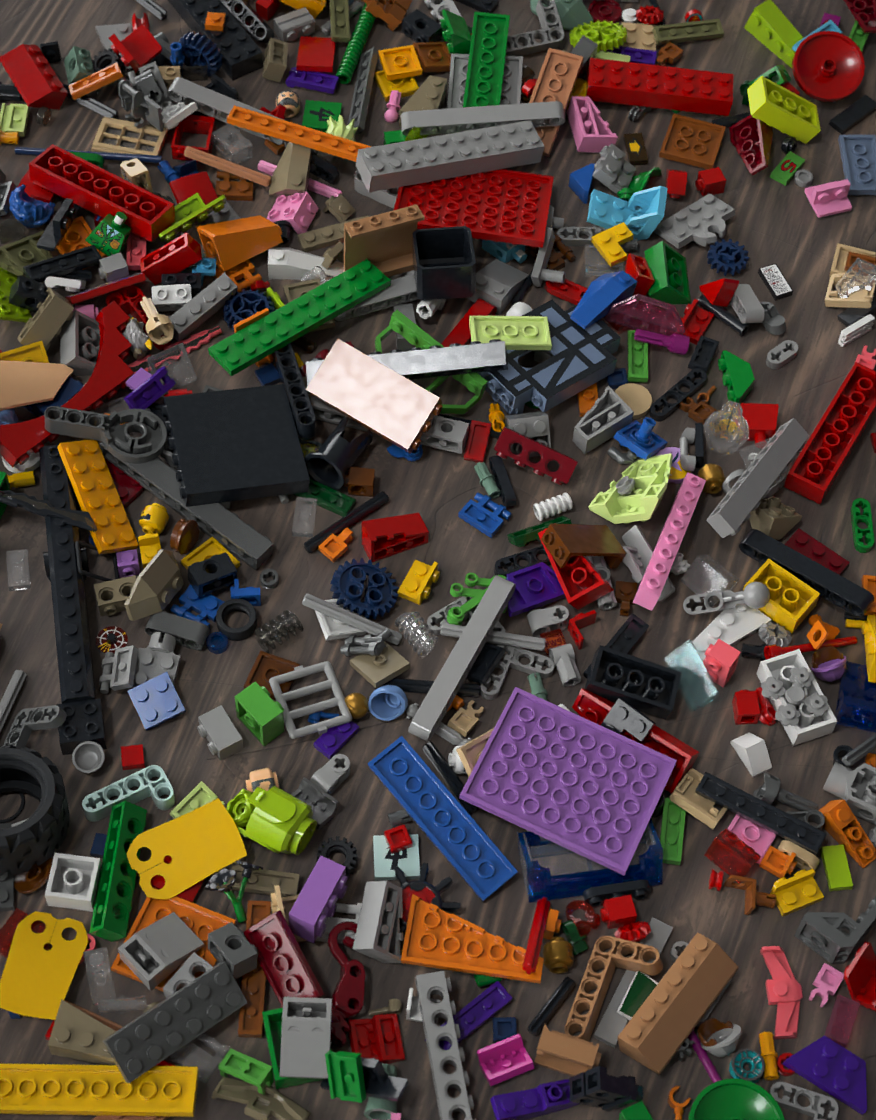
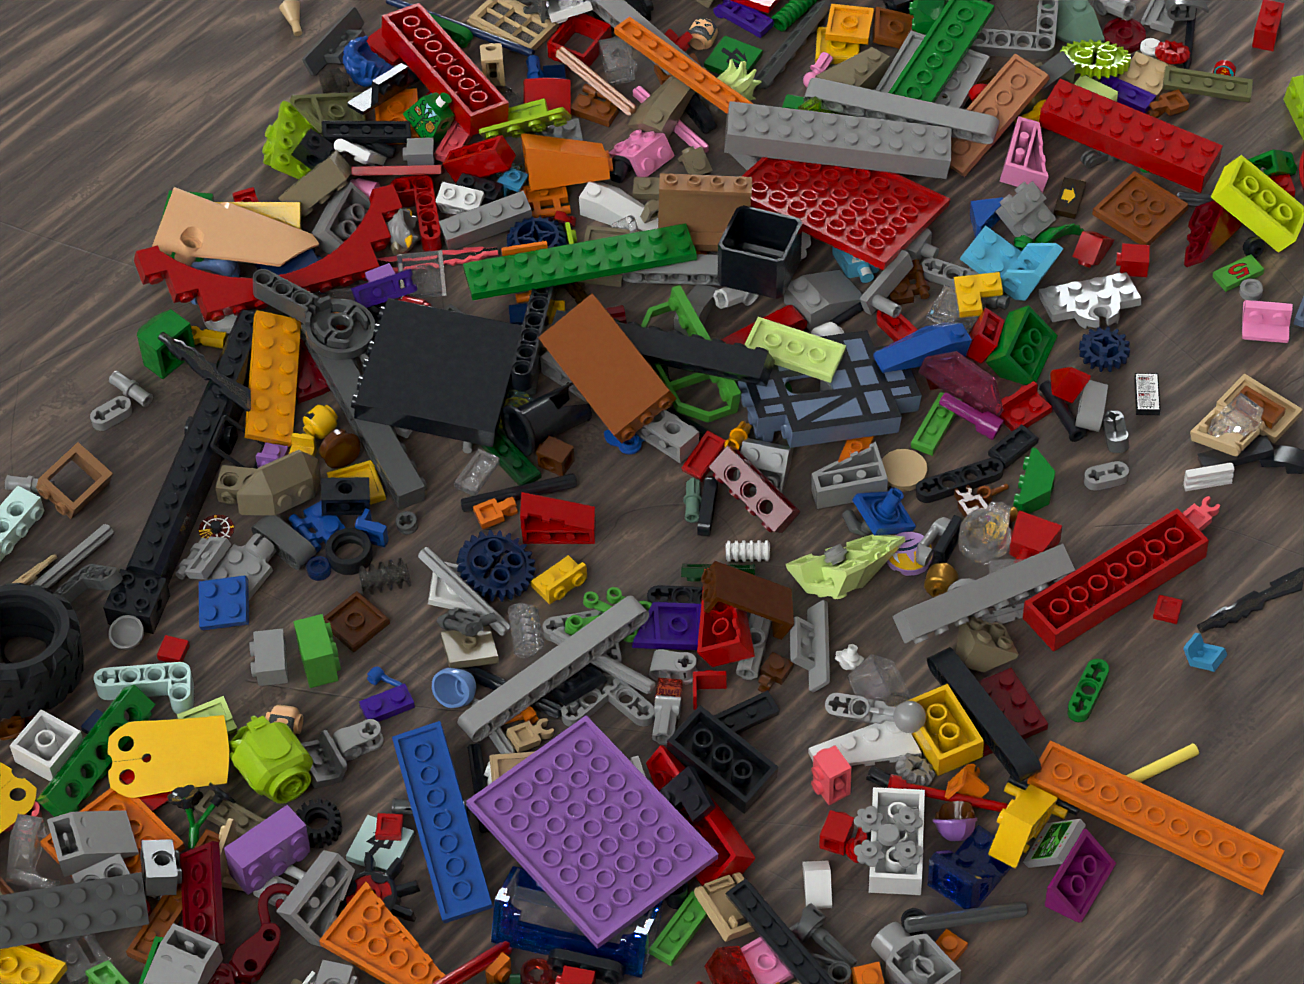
camera: 30 degrees right, 5 degrees down
(18, 570) = (161, 427): clear plate -> none
(157, 323) = (426, 223): tan piece -> none
(332, 682) = (349, 644): light grey bar -> none
(357, 705) = (419, 679): pearl gold piece -> none
(483, 519) = (664, 539): blue plate -> none
(537, 686) = (621, 737): sand green pin -> none
(617, 378) = (900, 440): dark blue tile -> none
(669, 541) = (848, 627): bright pink brick -> none
(695, 680) = (795, 778): clear light blue piece -> none

